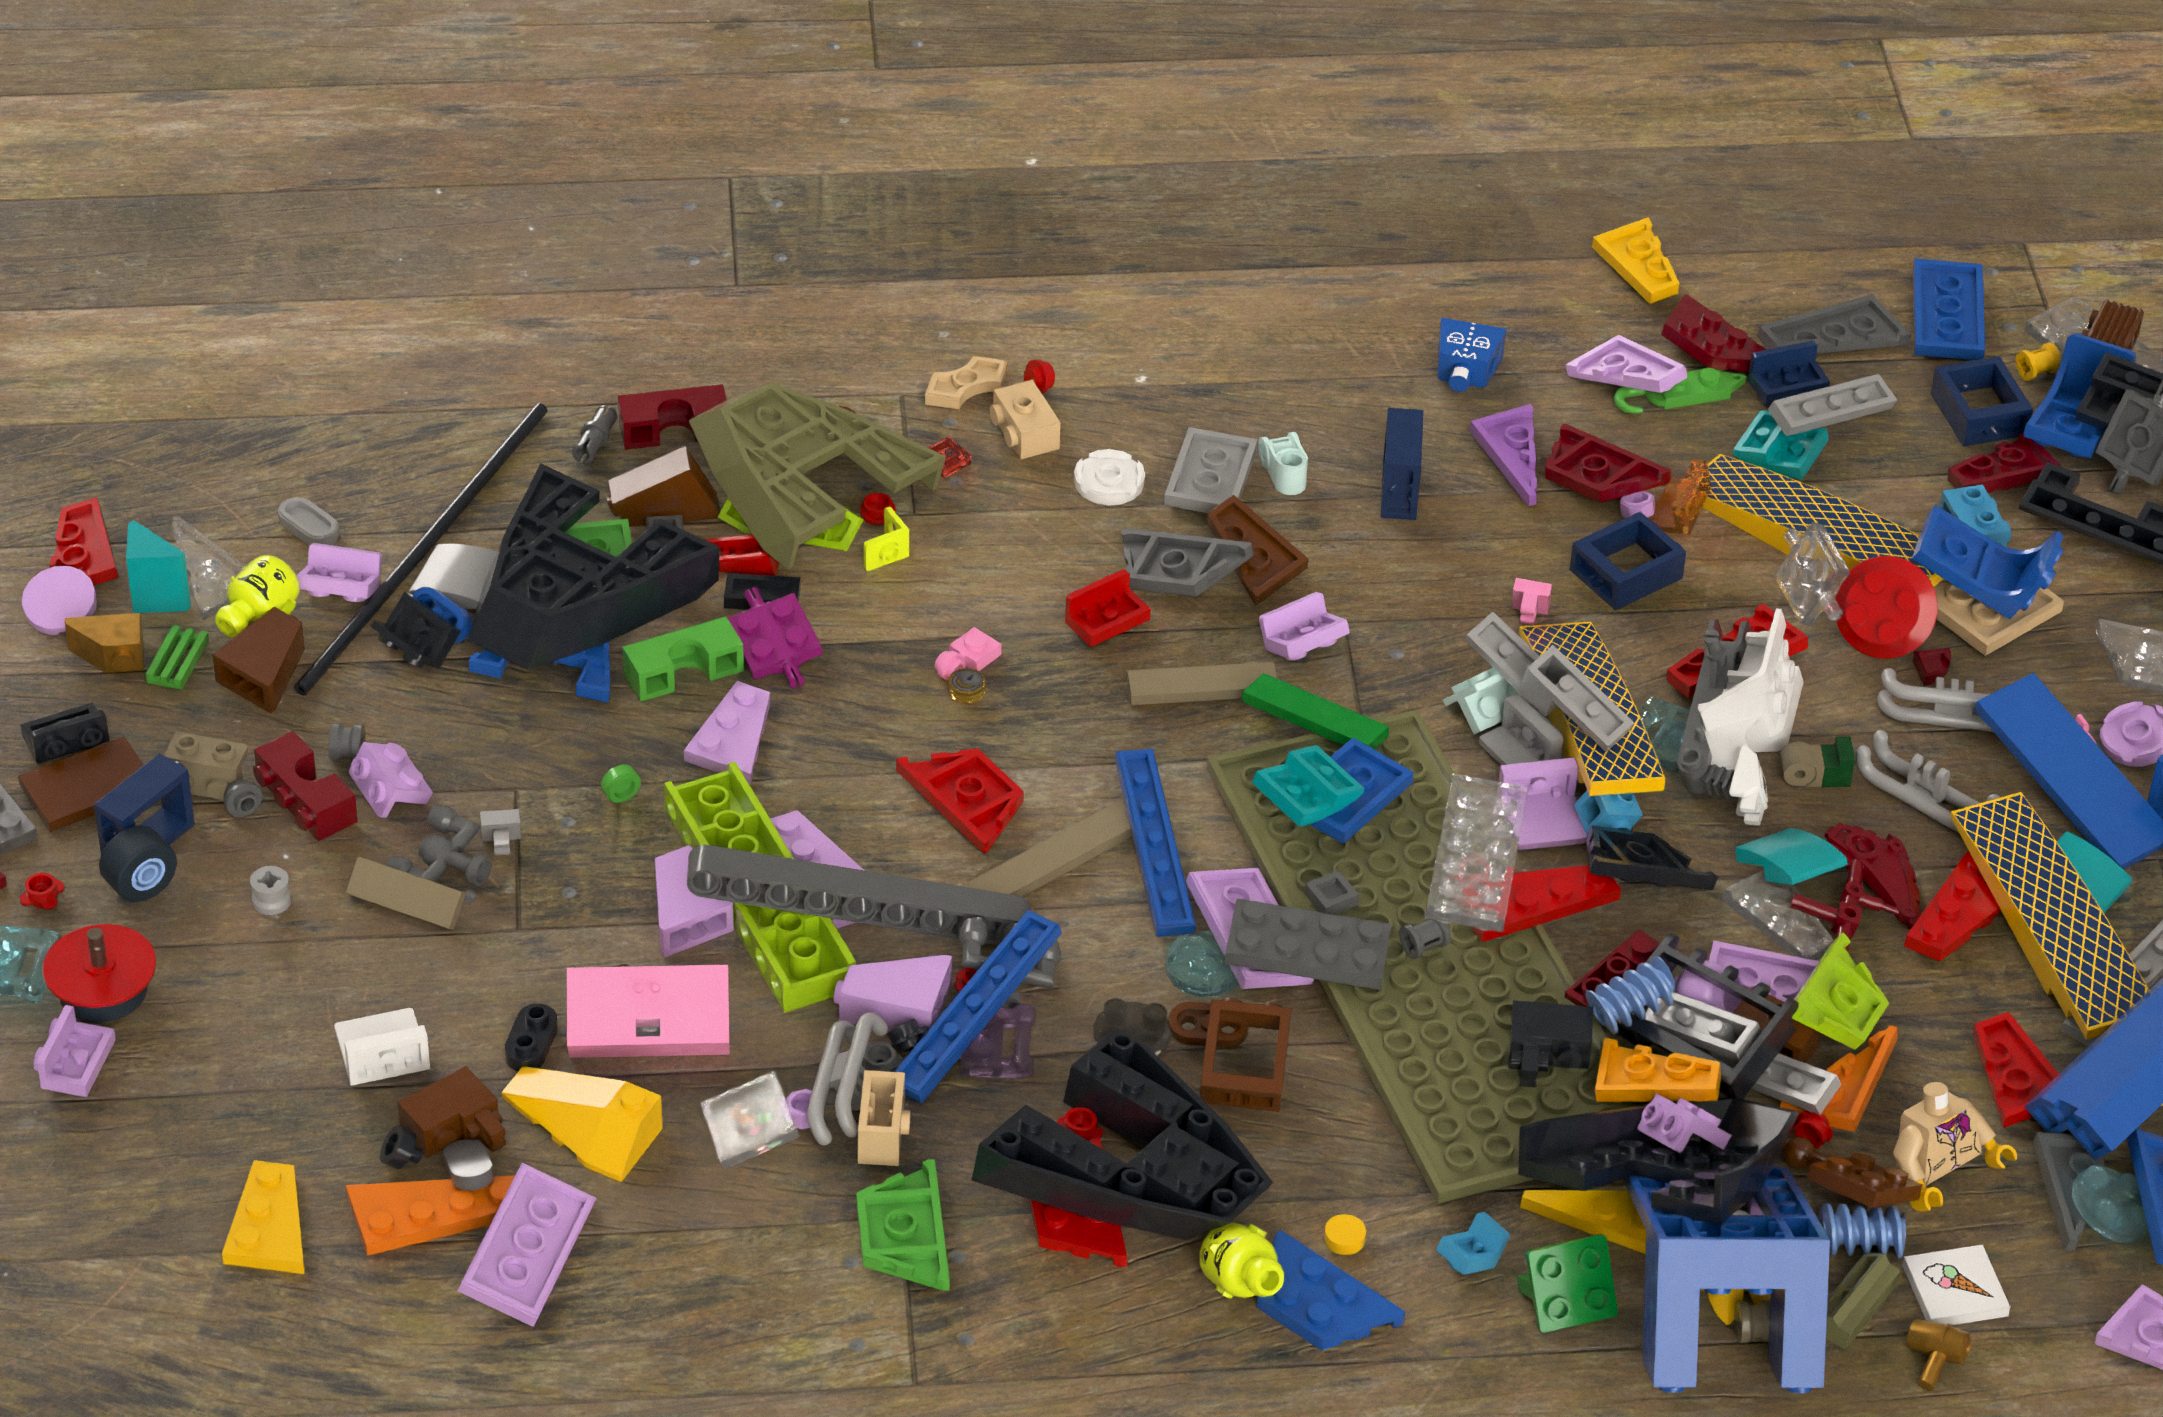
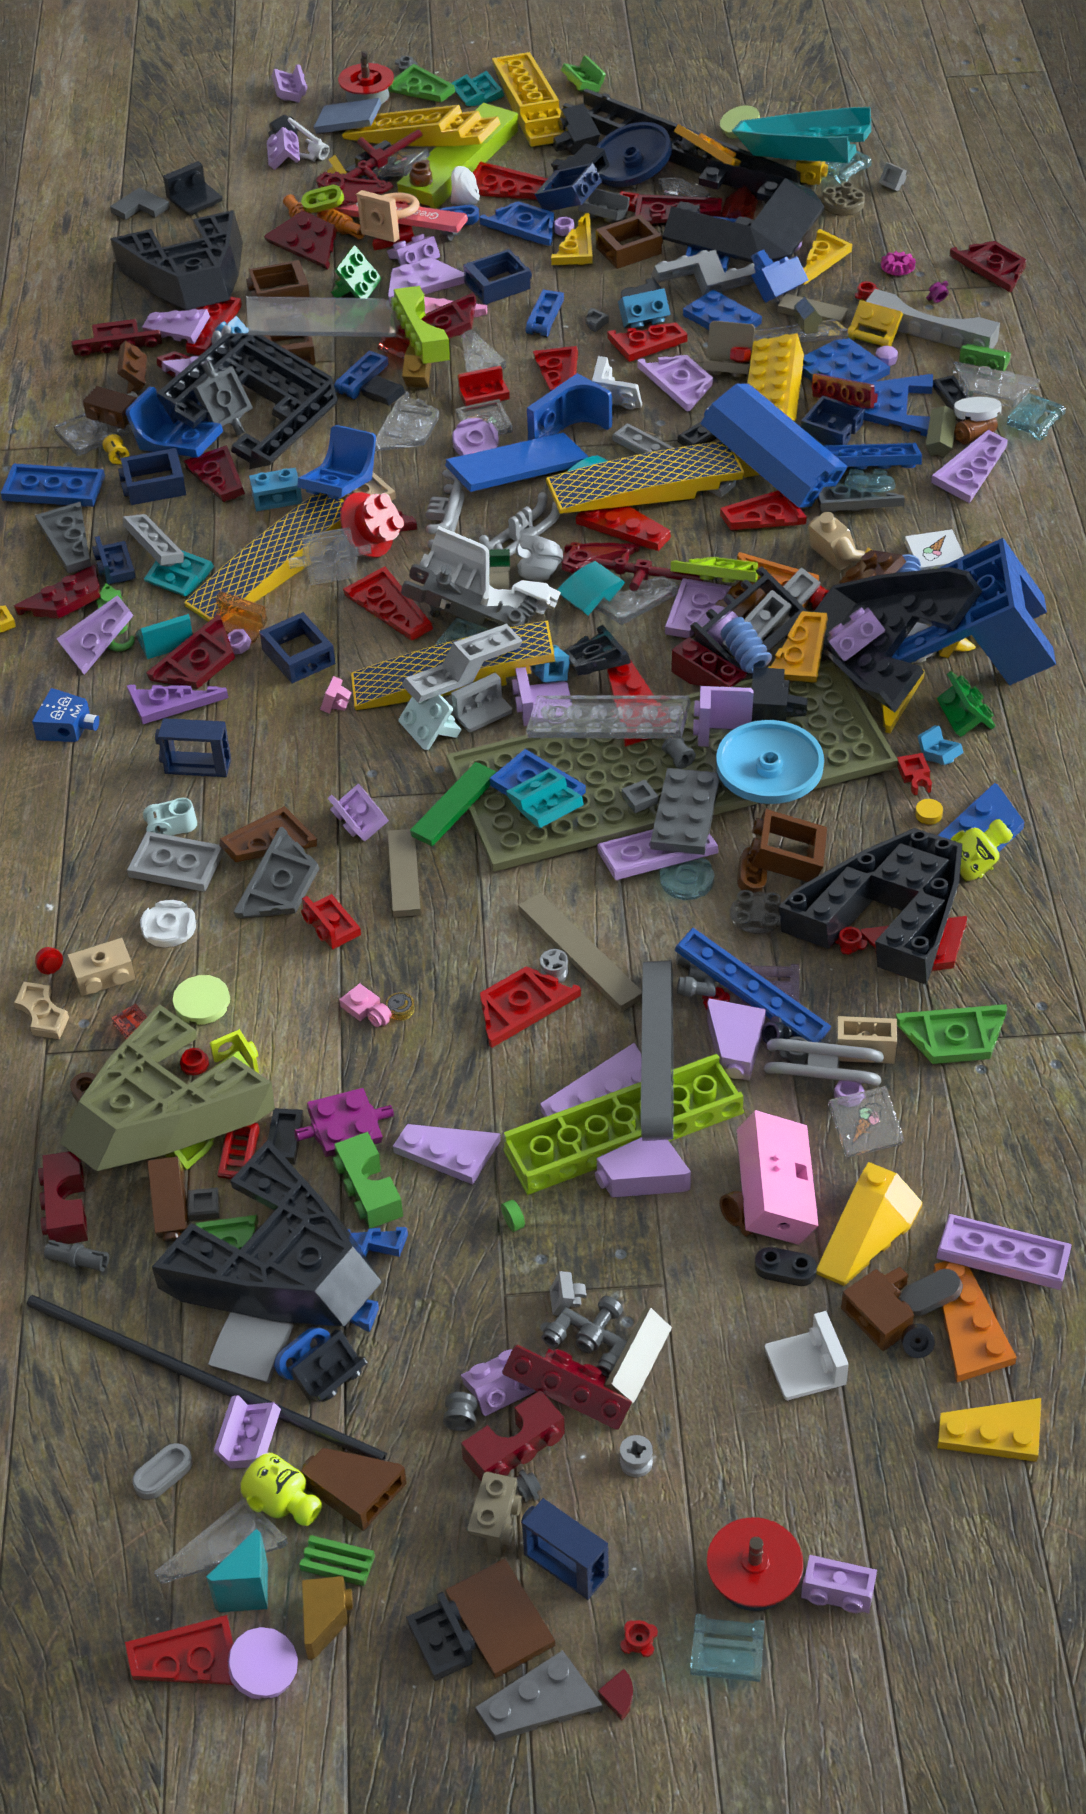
camera: 85 degrees left, 5 degrees up
(138, 863) = (626, 1550): black wheel -> none
(373, 823) = (568, 1383): none -> dark red bracket
(980, 511) = (201, 999): none -> yellowish green tile
(1030, 823) = (555, 958): none -> light grey wheel
(1155, 843) = (574, 896): blue tile -> none
(1397, 1023) = (769, 761): none -> medium azure dish
(1425, 1216) = (915, 770): none -> red plate
(1483, 957) = (721, 709): none -> lavender bracket
(1640, 431) = (164, 636): none -> teal slope
(1843, 793) = (538, 557): none -> light grey helmet

